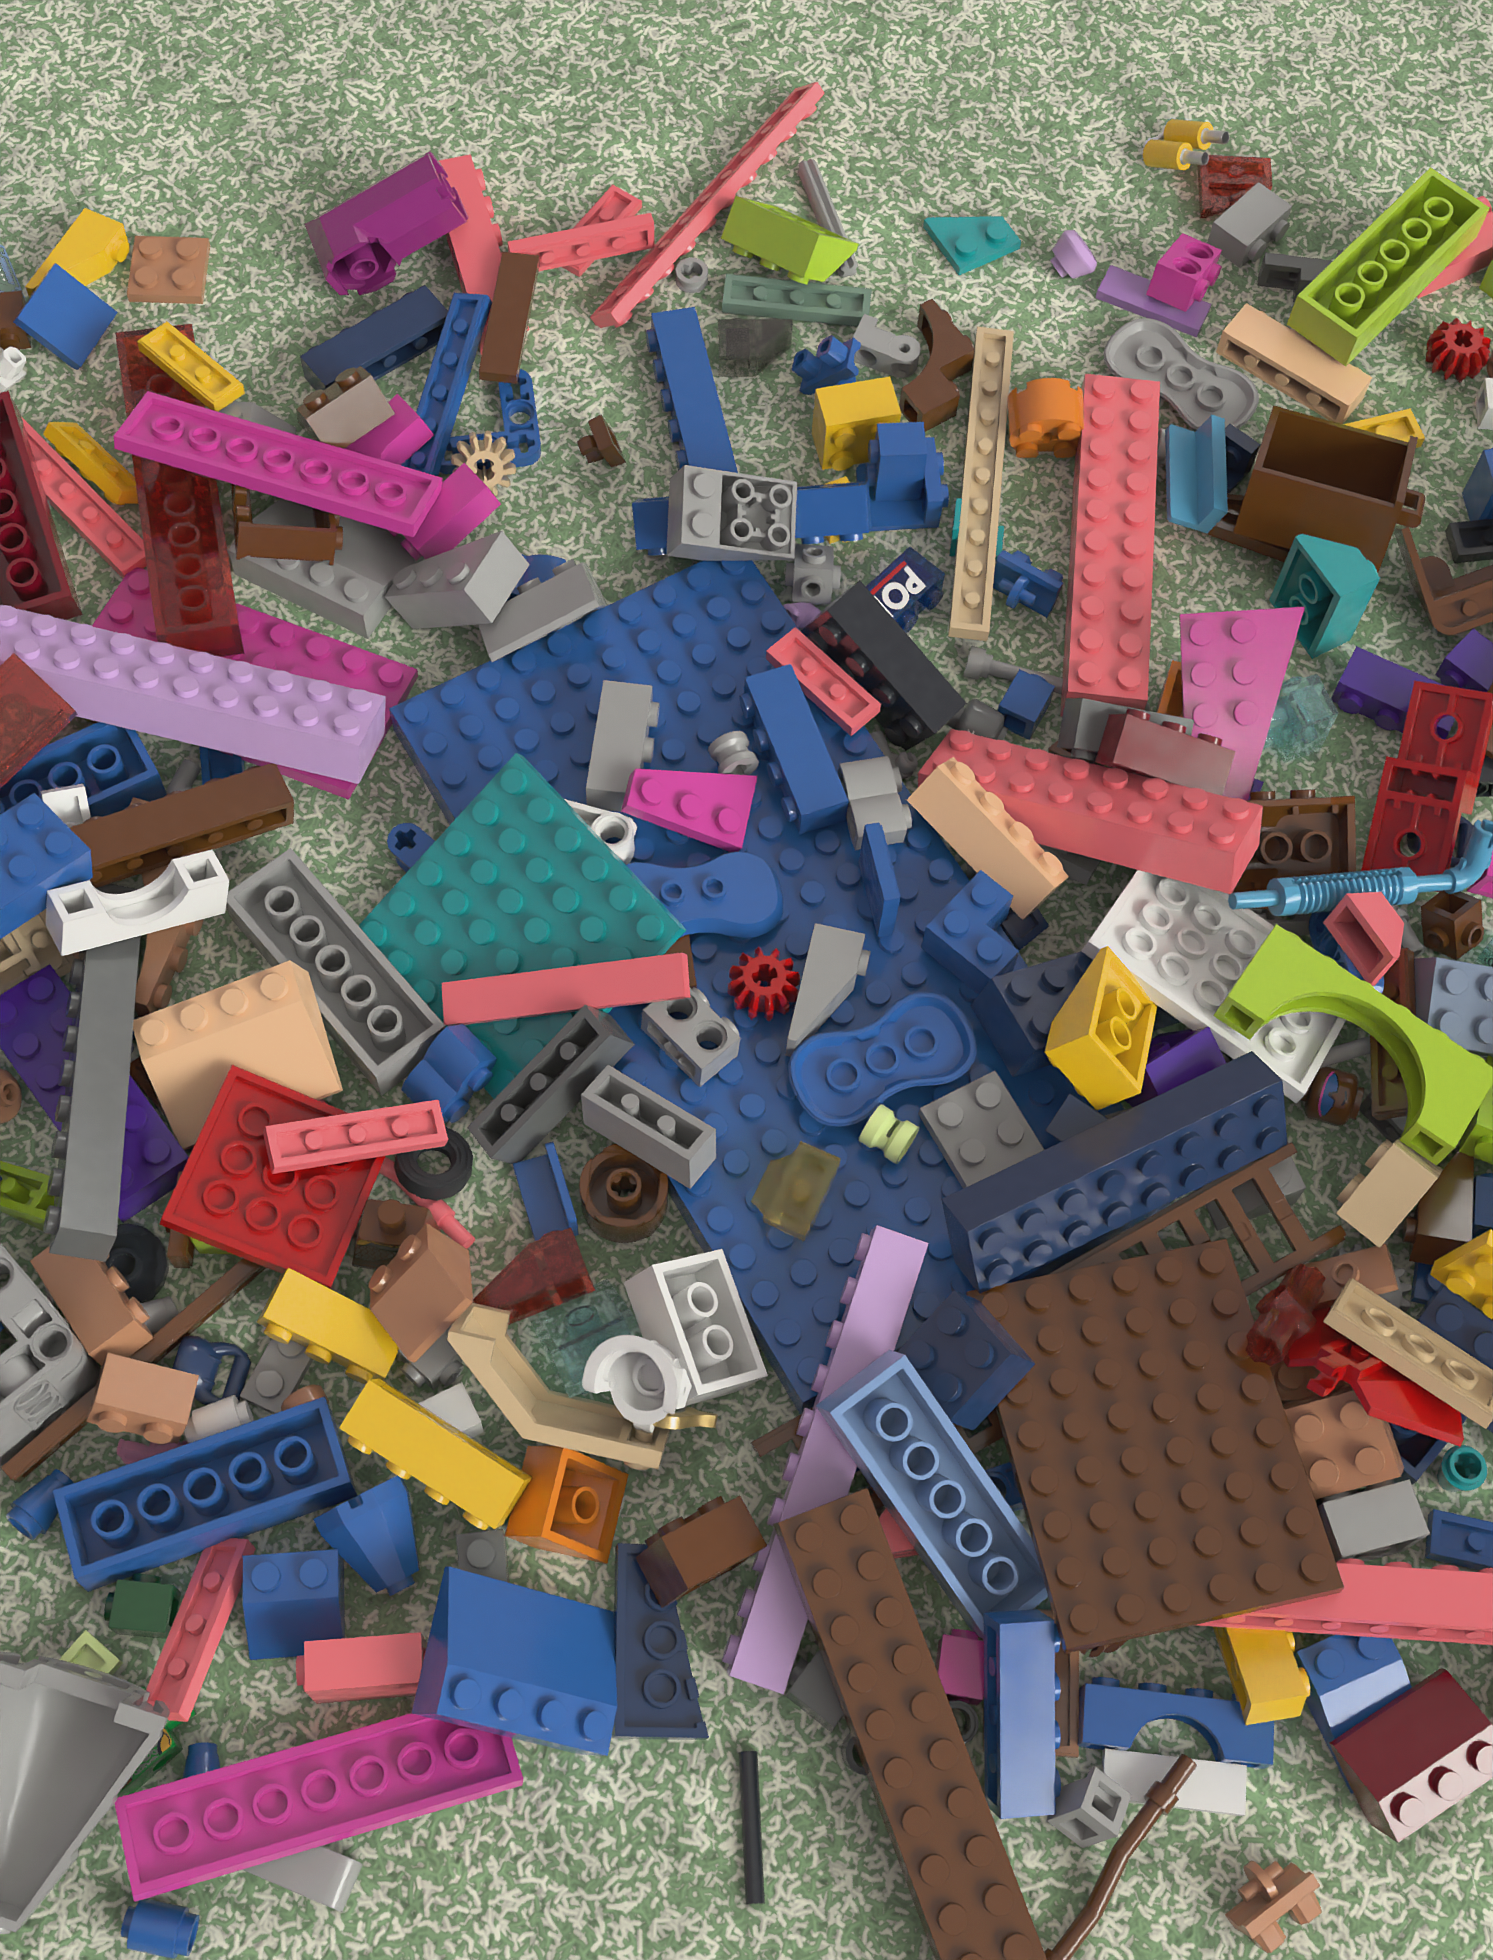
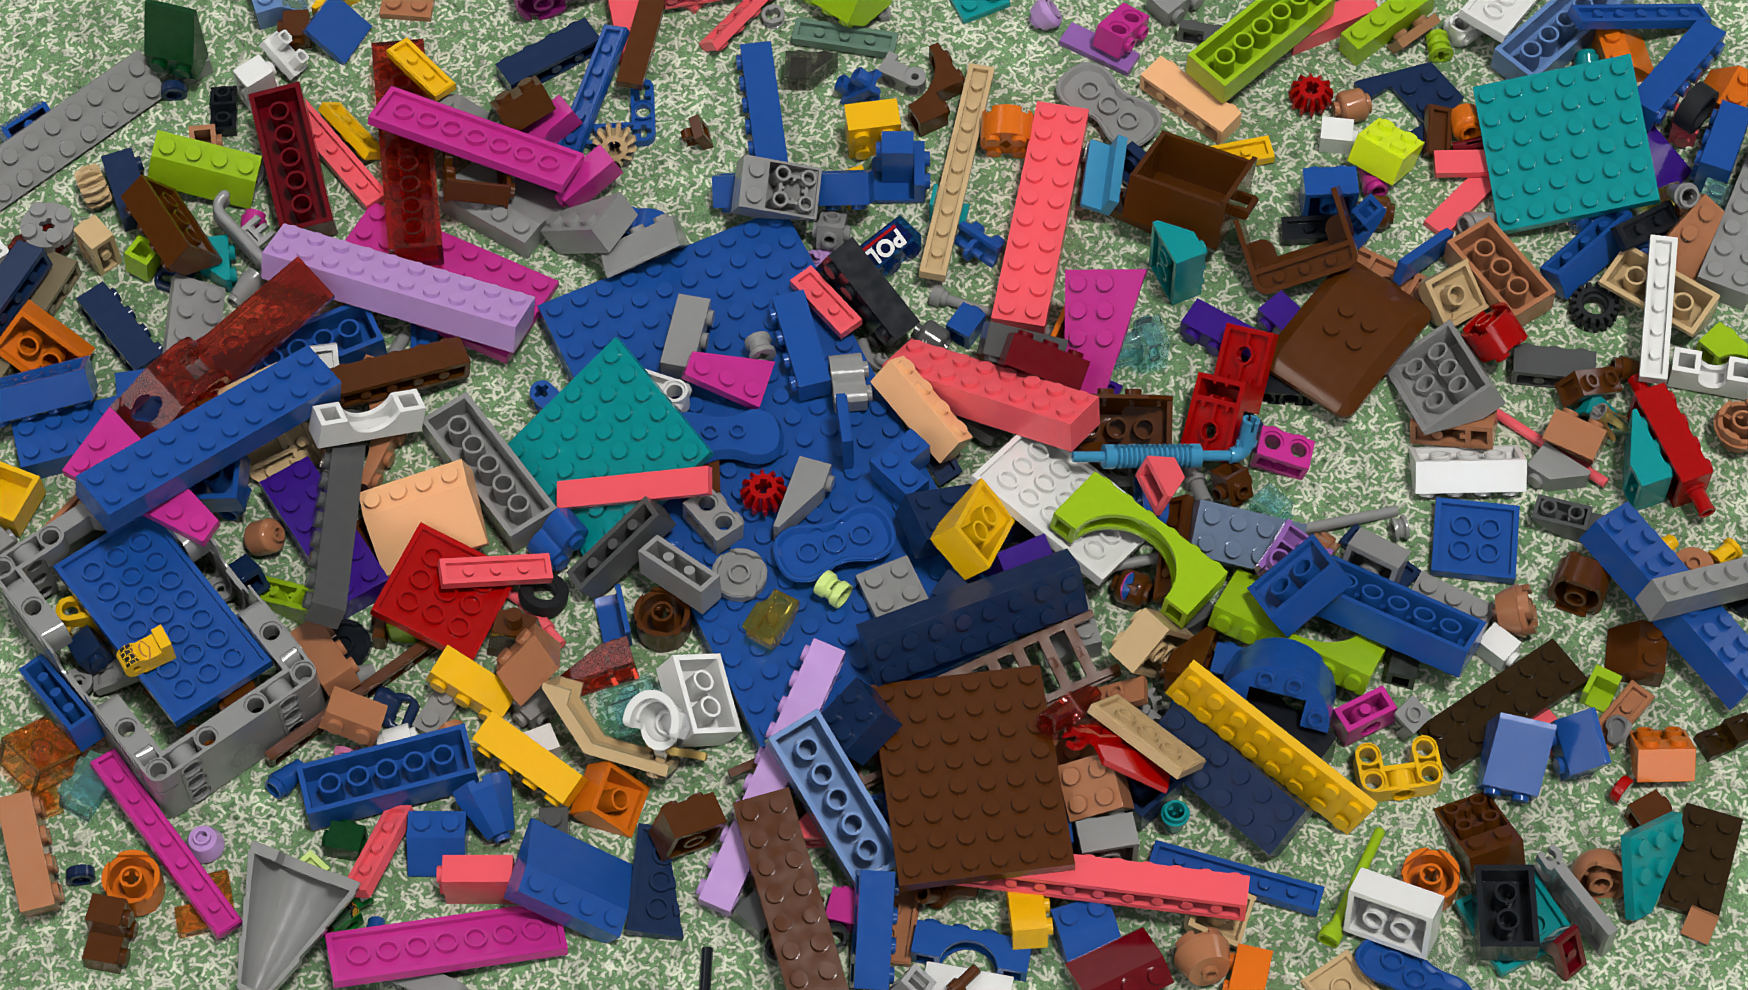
camera: 10 degrees right, 5 degrees down
(744, 1116) = (741, 574): none -> light grey tile

